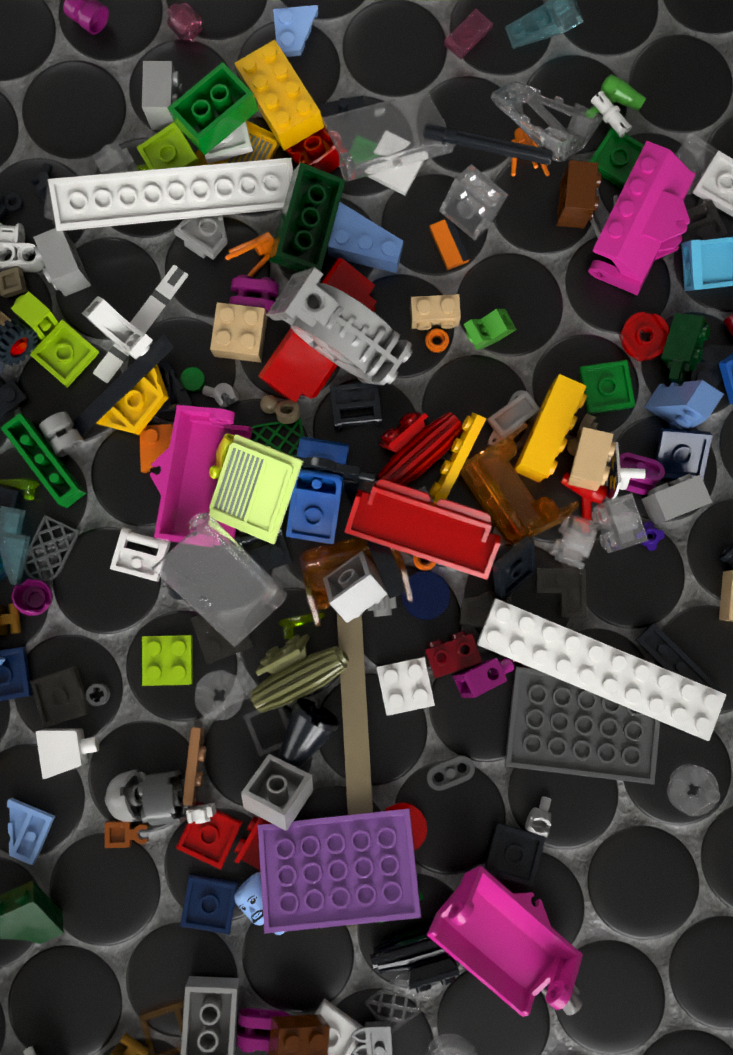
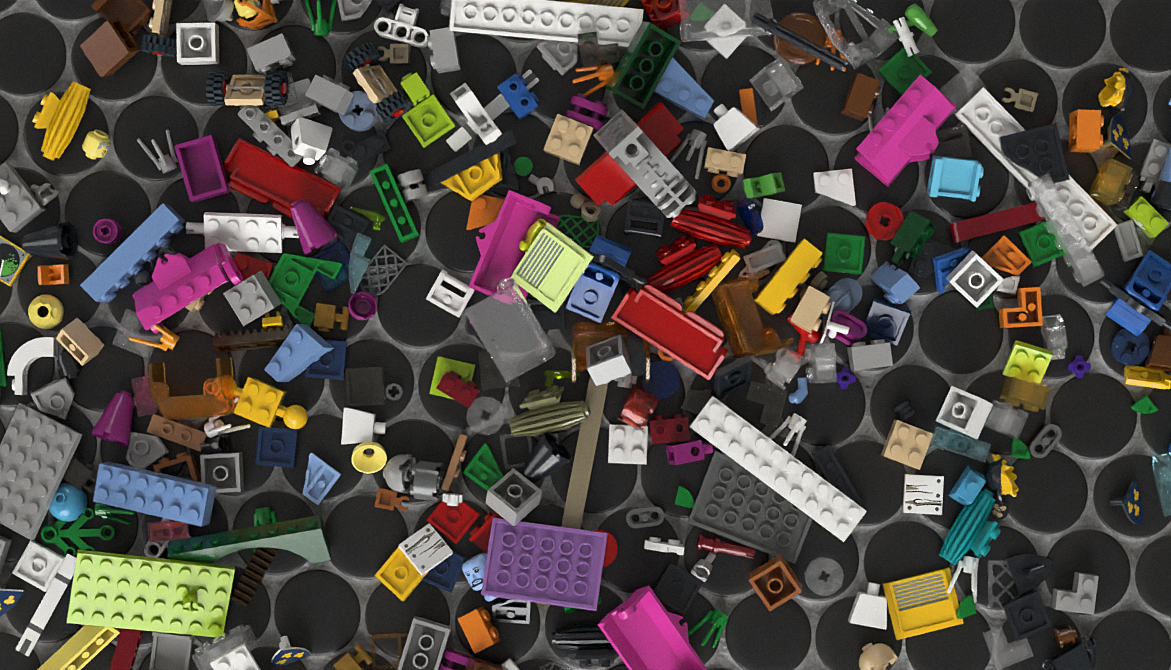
camera: 15 degrees right, 5 degrees up
(82, 794) = (369, 463): none -> light yellow piece
(159, 927) = (399, 575): none -> yellow plate
(166, 297) = (518, 97): none -> blue brick
(174, 671) = (458, 389): none -> dark red brick
(182, 888) = (425, 549): none -> white tile
(233, 763) = (484, 468): none -> green wing
(244, 224) = (595, 54): none -> clear smoke plate
(275, 975) = (479, 629): none -> orange brick
(310, 941) = (511, 611): none -> wing
(394, 297) = (696, 140): none -> light grey plant
(406, 637) = (637, 408): none -> clear red brick
(435, 267) = (733, 127): none -> white torso
(439, 389) = (713, 223): none -> red plate
(482, 368) = (750, 218): none -> clear blue tile
(490, 164) = (805, 26): none -> reddish brown piece
(492, 736) = (684, 498): none -> green tile
(494, 801) = (671, 546): none -> white wing
(518, 367) = (780, 220): none -> white tile
(549, 786) = (717, 545): none -> dark red pin
(575, 308) = (836, 185): none -> white wing
(577, 882) = (717, 619): none -> green plant
(602, 566) = (801, 392): none -> medium blue arm
(608, 609) = (796, 424): none -> white plant
(626, 432) = (845, 294): none -> sand blue piece
(637, 816) = (775, 582): none -> dark orange brick

